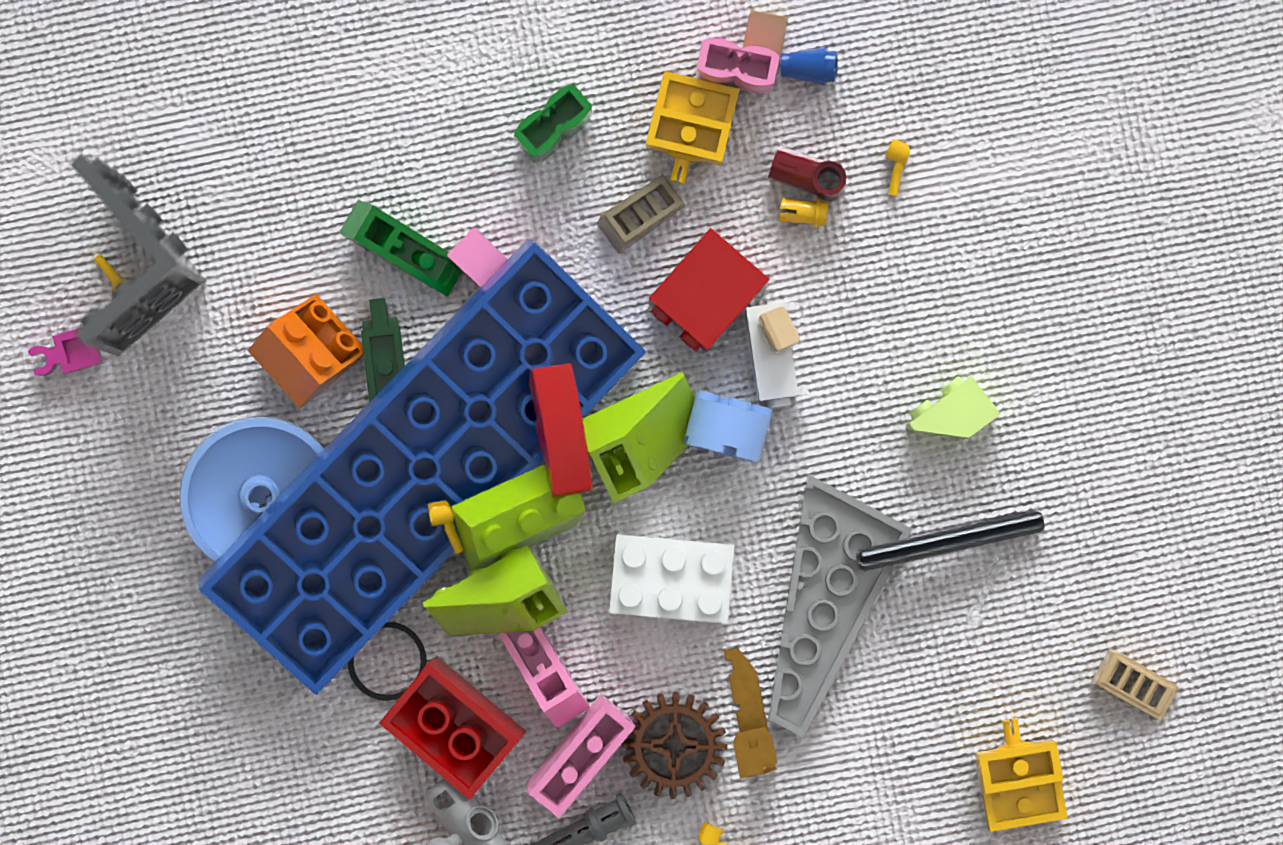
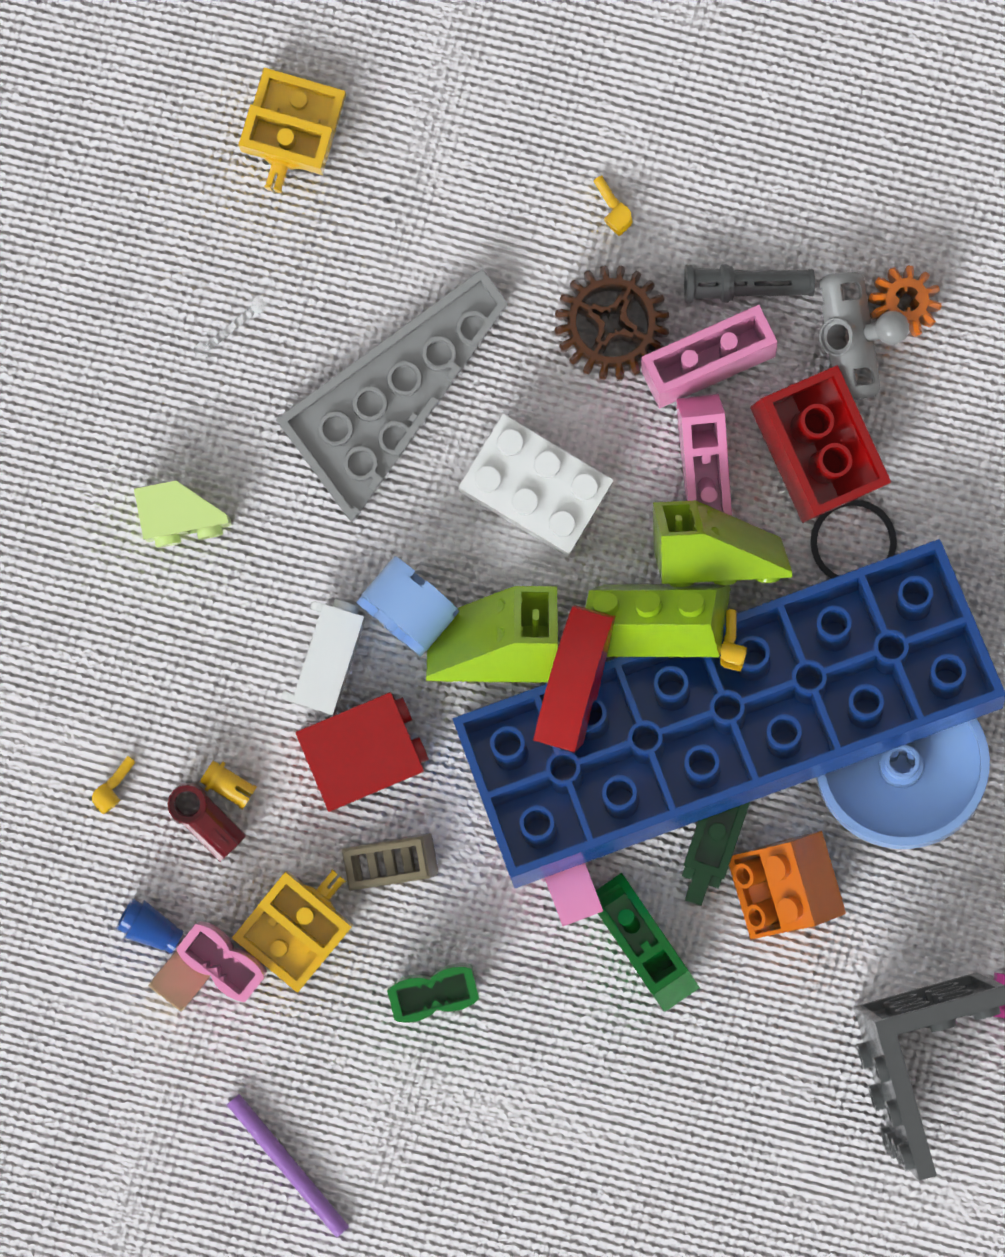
camera: 155 degrees left, 0 degrees up
(113, 276) = (944, 1053): yellow hand -> none
(753, 743) = (533, 285): pearl gold piece -> none
(778, 329) = (311, 676): tan slope -> none
(950, 540) = (244, 390): black axle -> none
(1109, 666) = (154, 190): tan slope -> none

